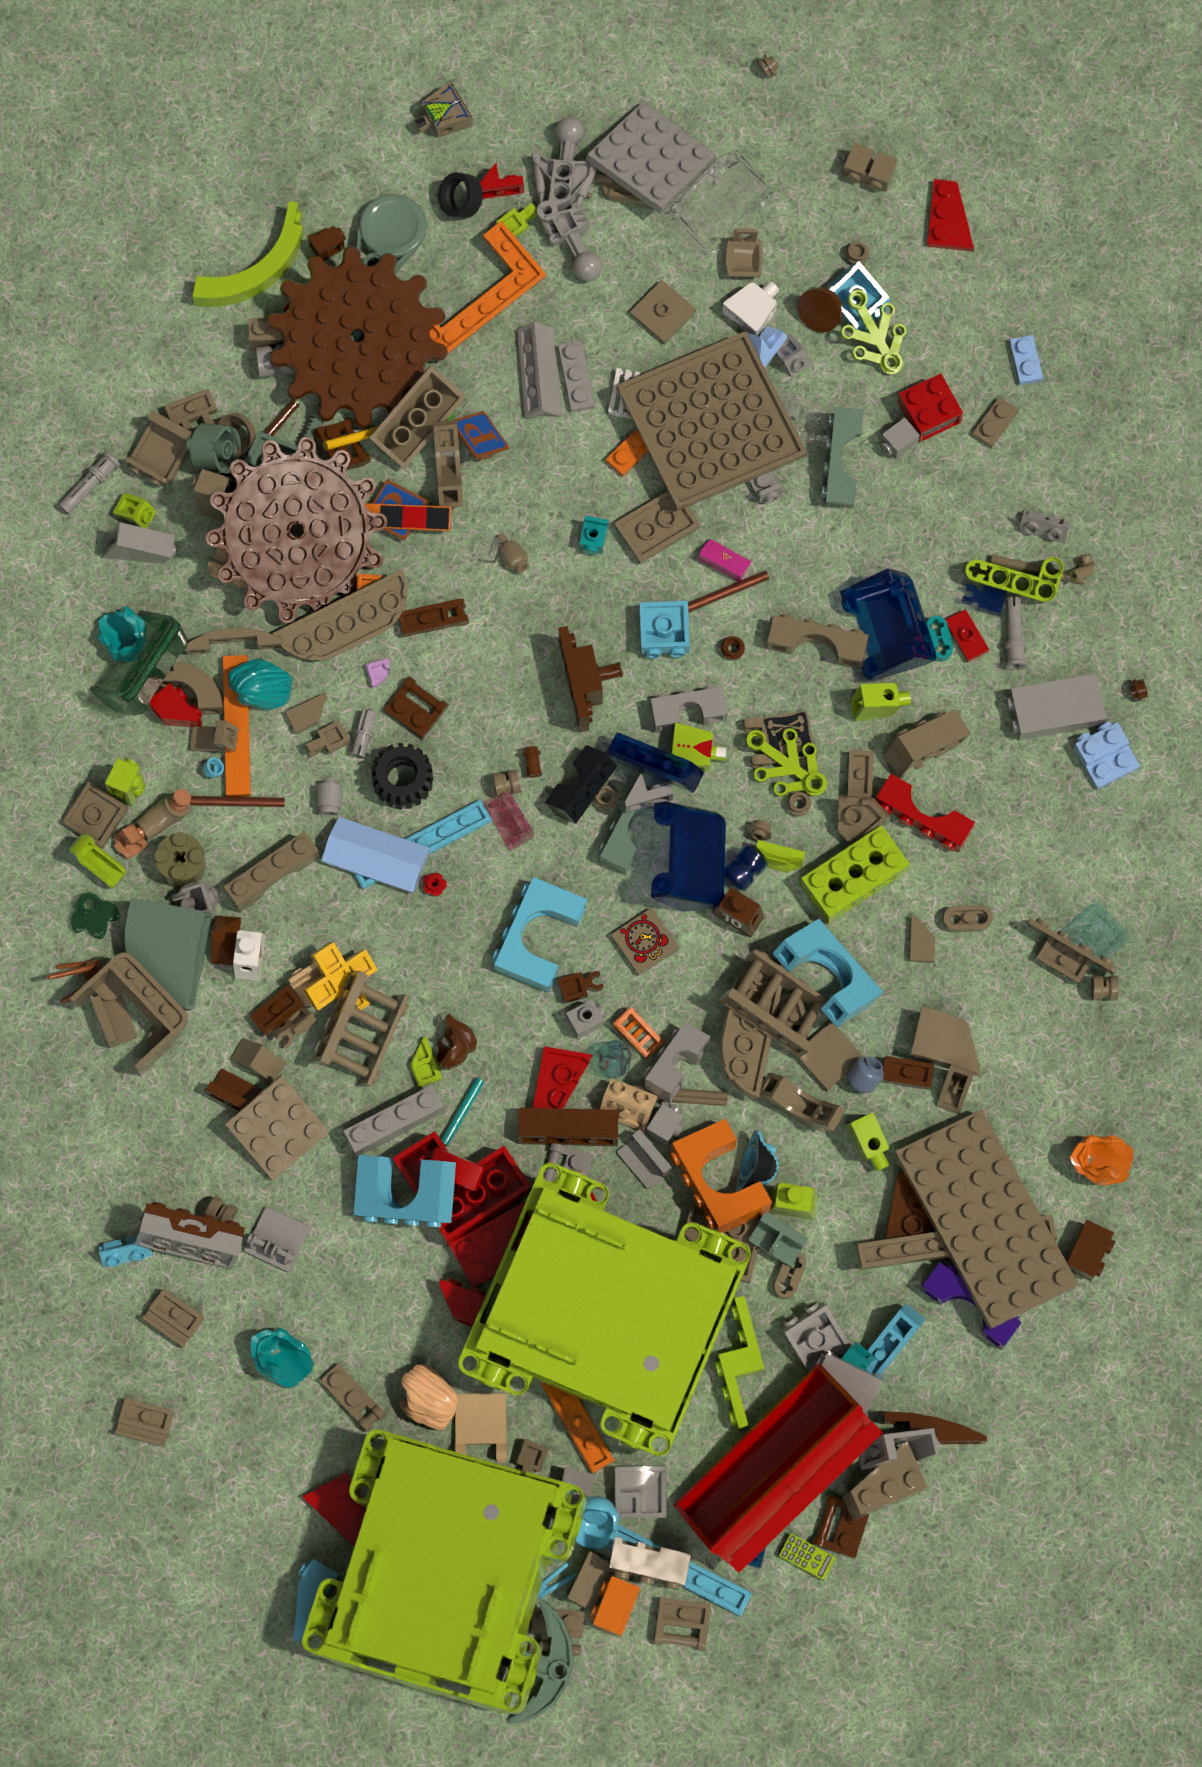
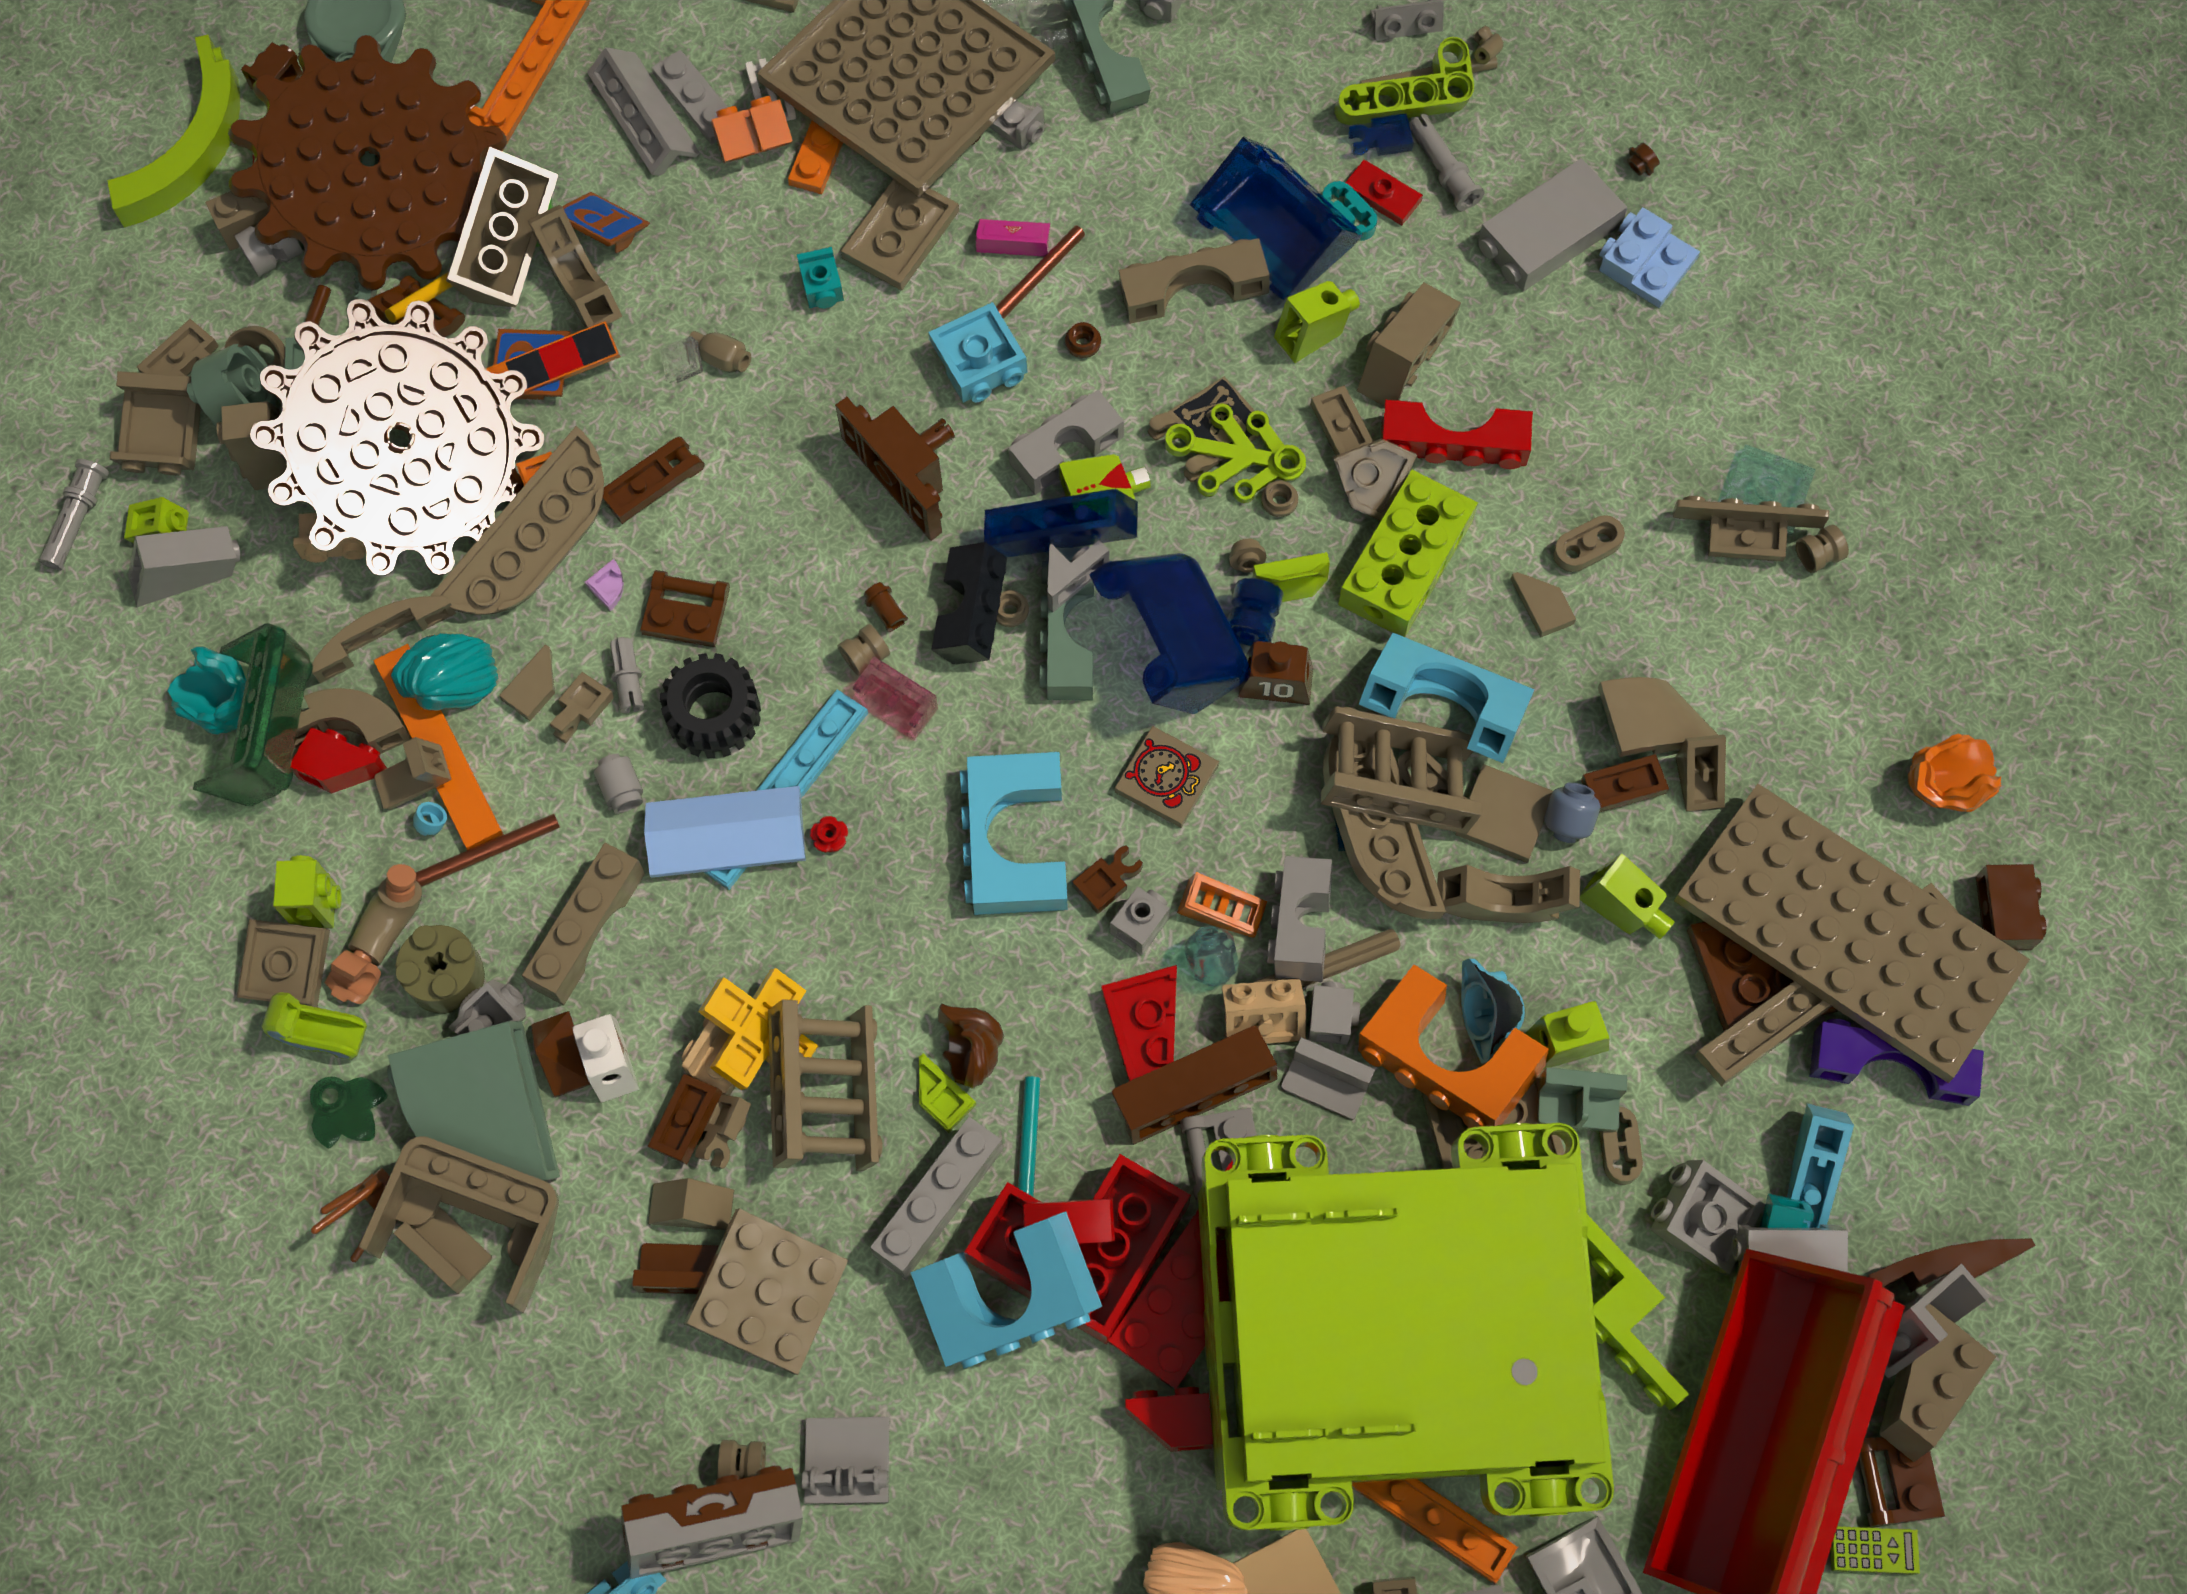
camera: 25 degrees left, 5 degrees down
(597, 417) = (751, 130): none -> orange piece

